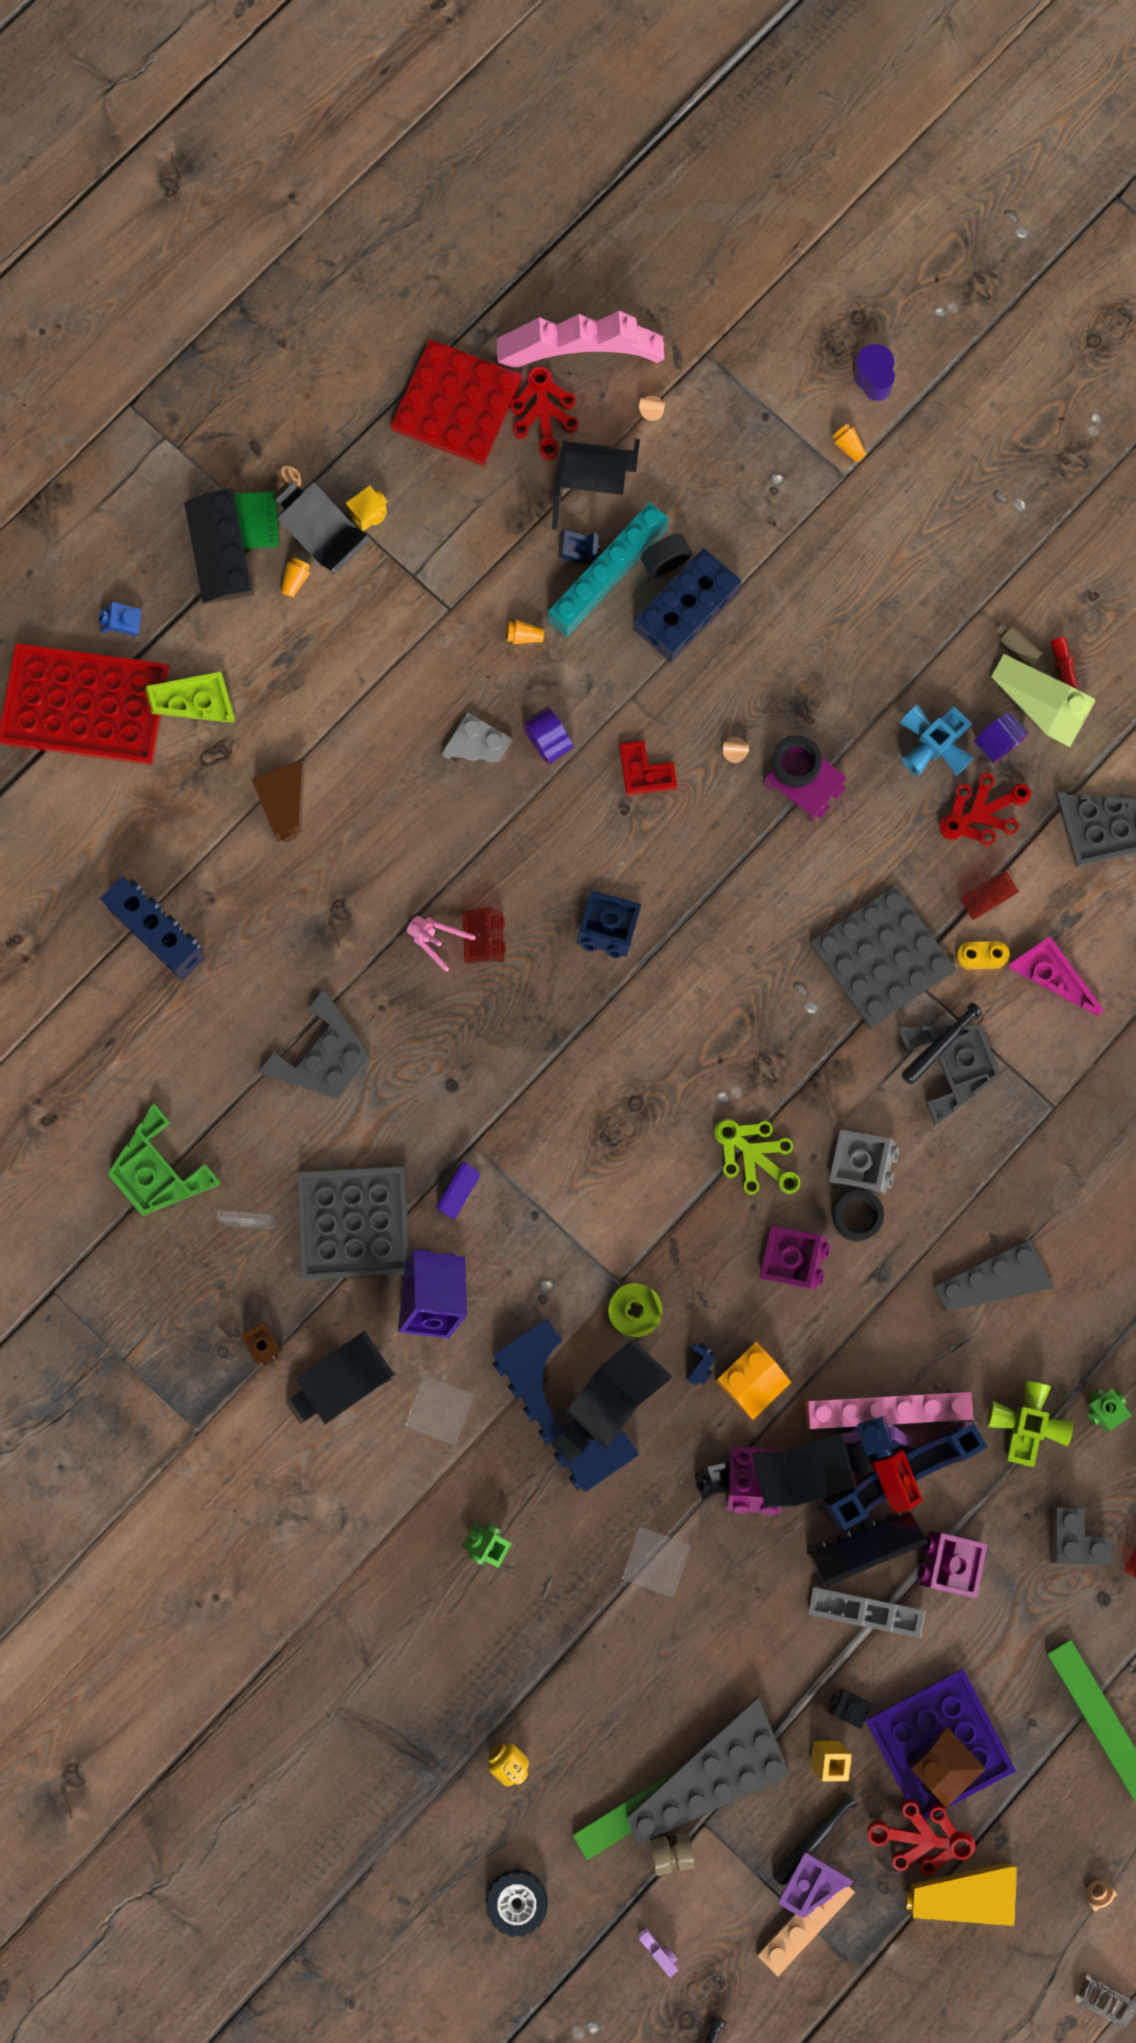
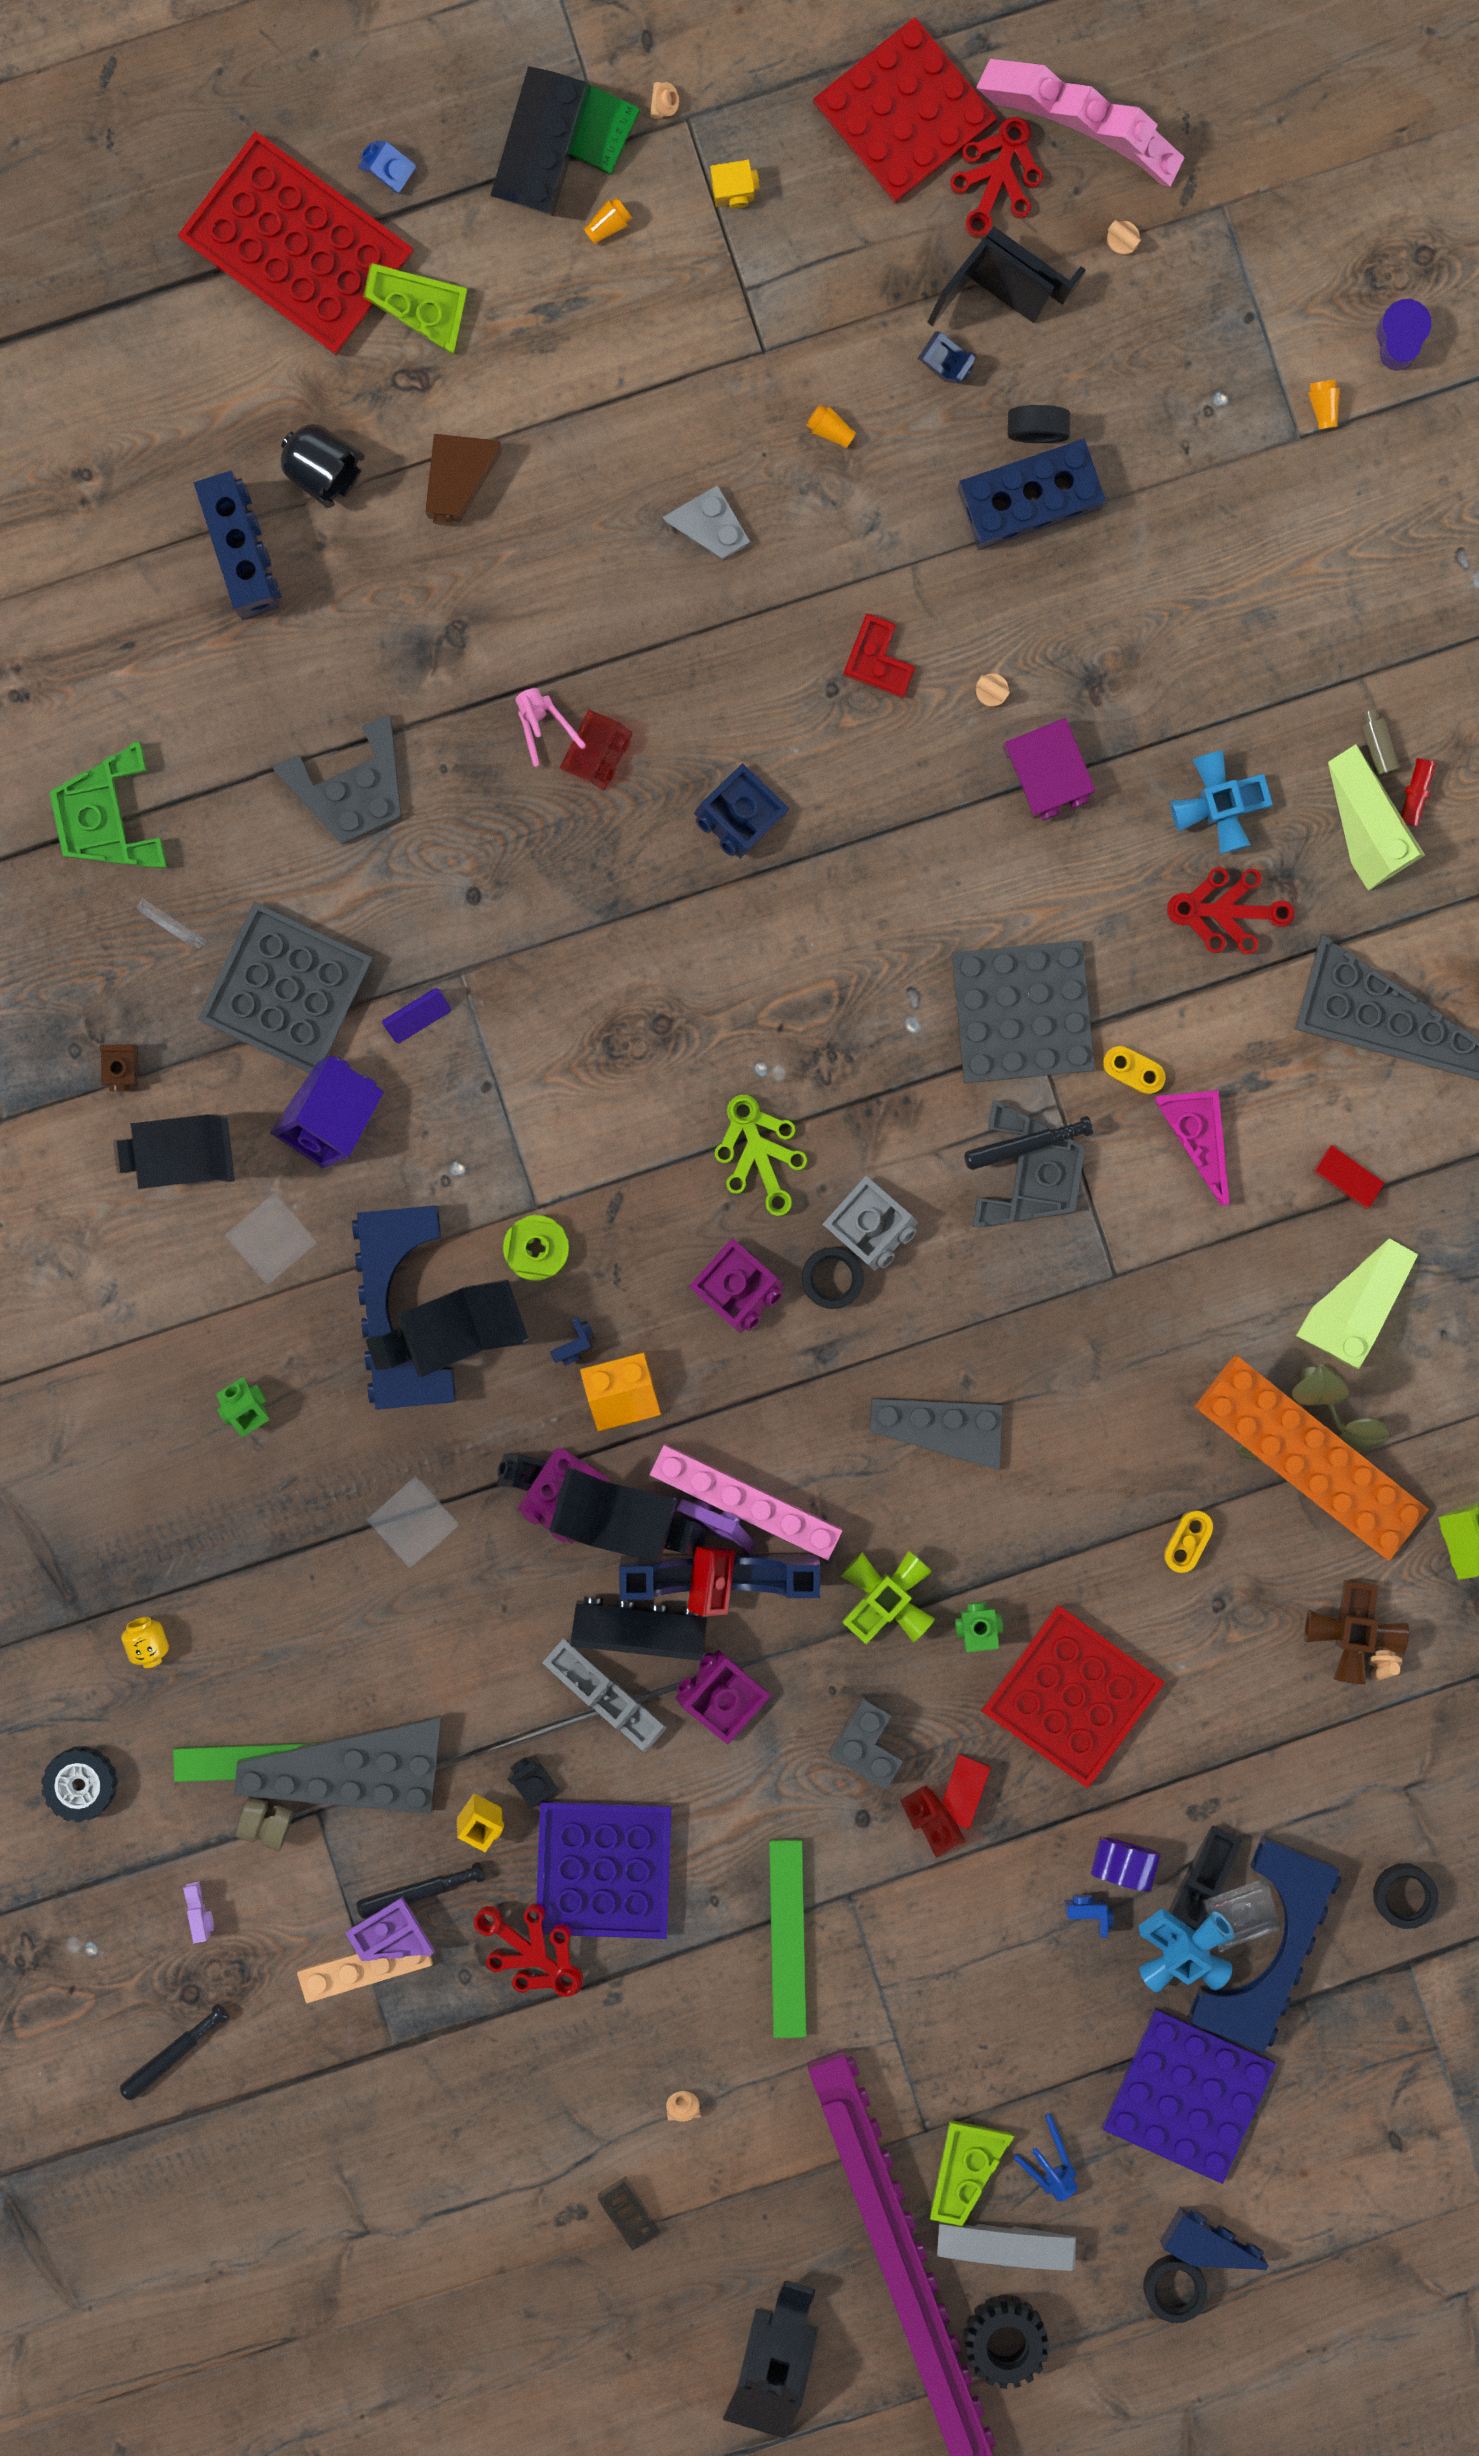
camera: 30 degrees right, 10 degrees up
(181, 841) = (320, 463): none -> black cylinder
(319, 525) = (664, 178): black piece -> none
(547, 735) = (790, 560): dark purple piece -> none
(608, 570) = (965, 404): teal brick -> none
(800, 742) = (1056, 719): black tyre -> none
(876, 1437) = (712, 1523): dark blue bracket -> none
(946, 1767) = (595, 1895): reddish brown slope -> none
(970, 1896) = (545, 2034): yellow slope -> none
(989, 895) = (1179, 1007): clear red slope -> none
(1001, 737) = (1296, 838): dark purple piece -> none

